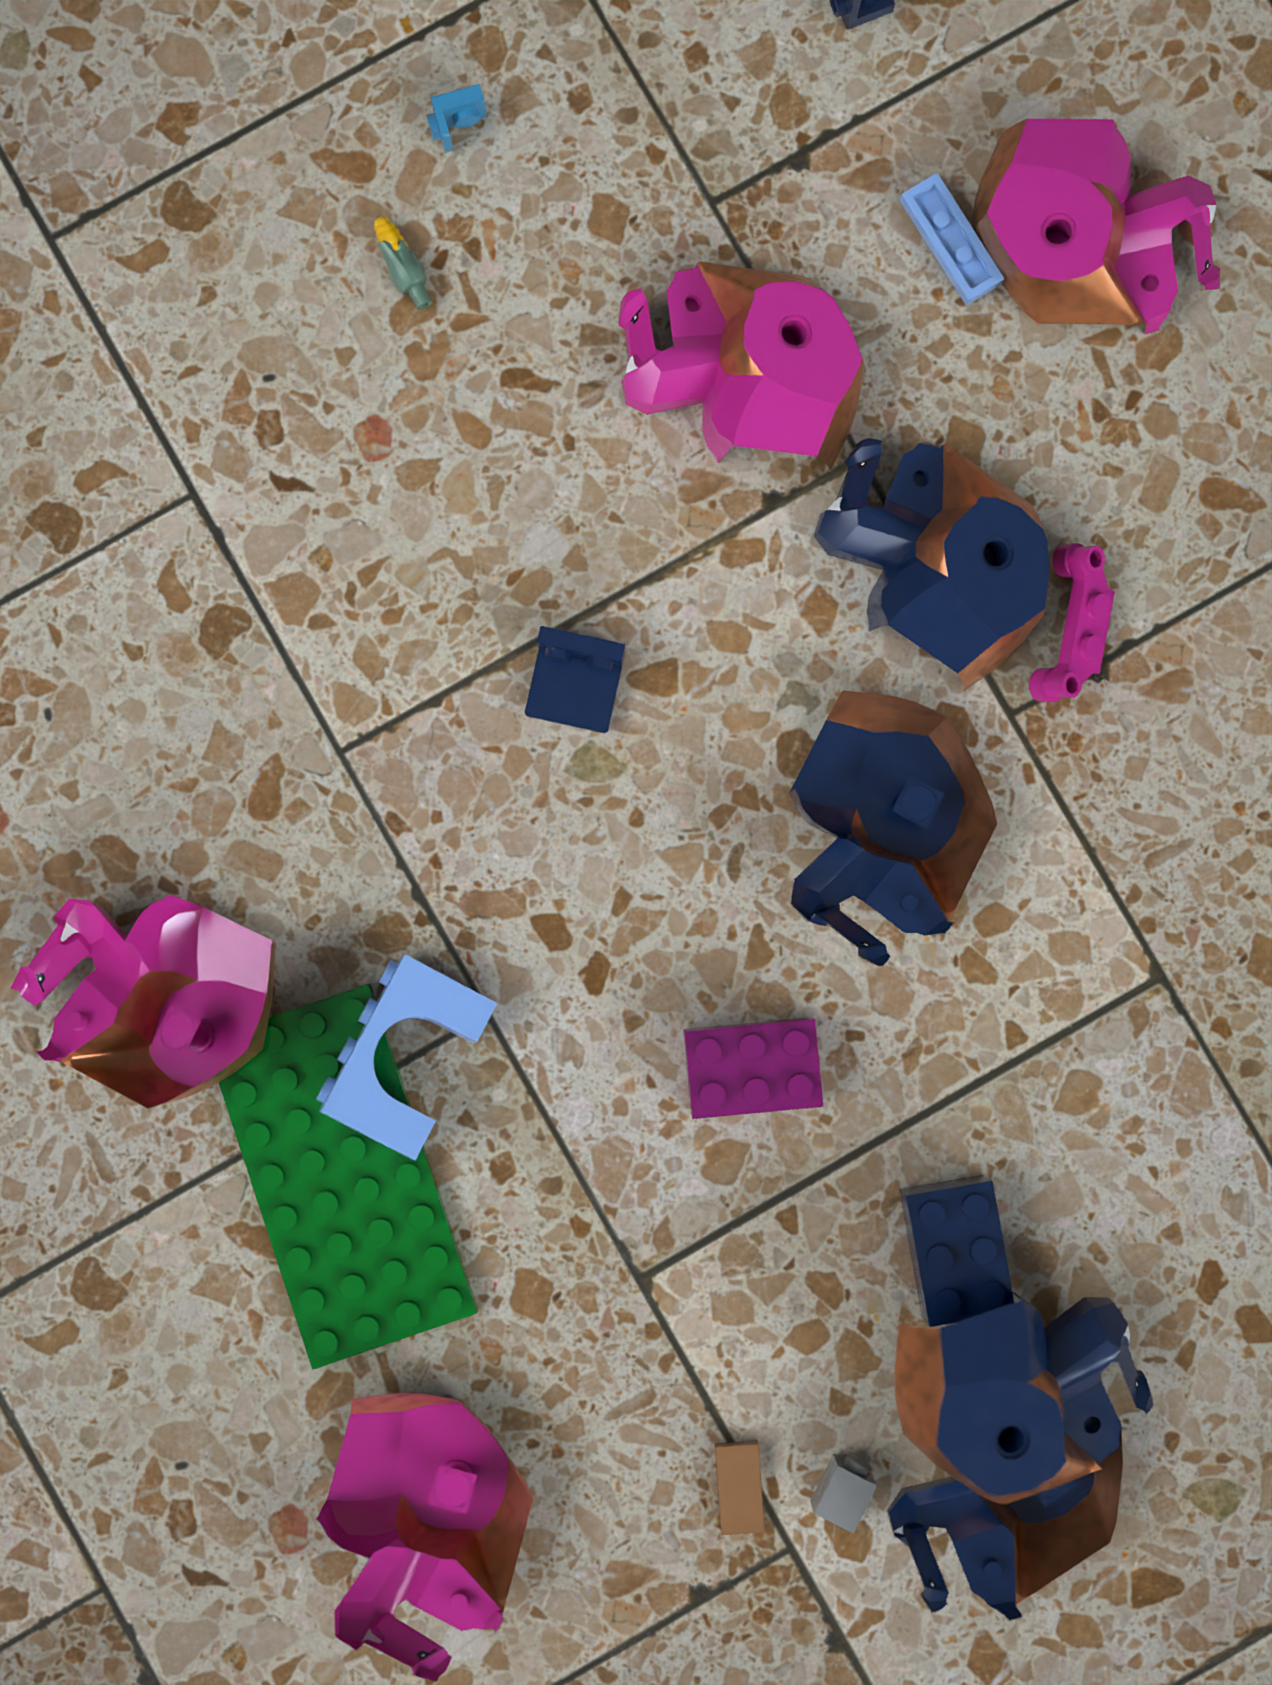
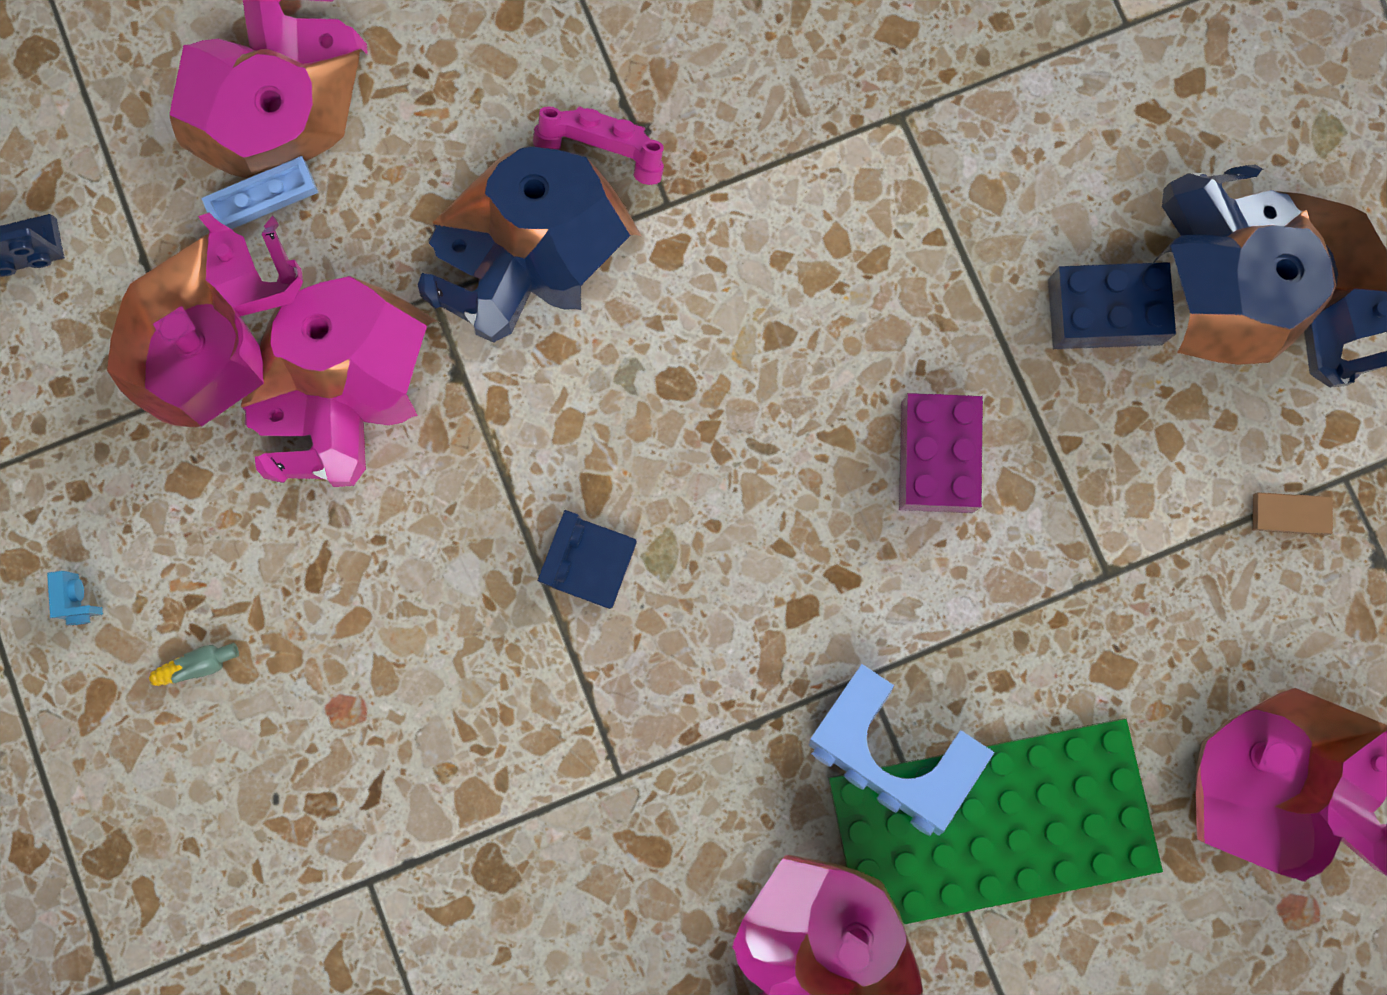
camera: 80 degrees left, 5 degrees down
(775, 178) = (182, 332): none -> dark pink piece
(844, 1492) = (1304, 426): light grey brick -> none
(903, 814) = (743, 295): dark blue piece -> none

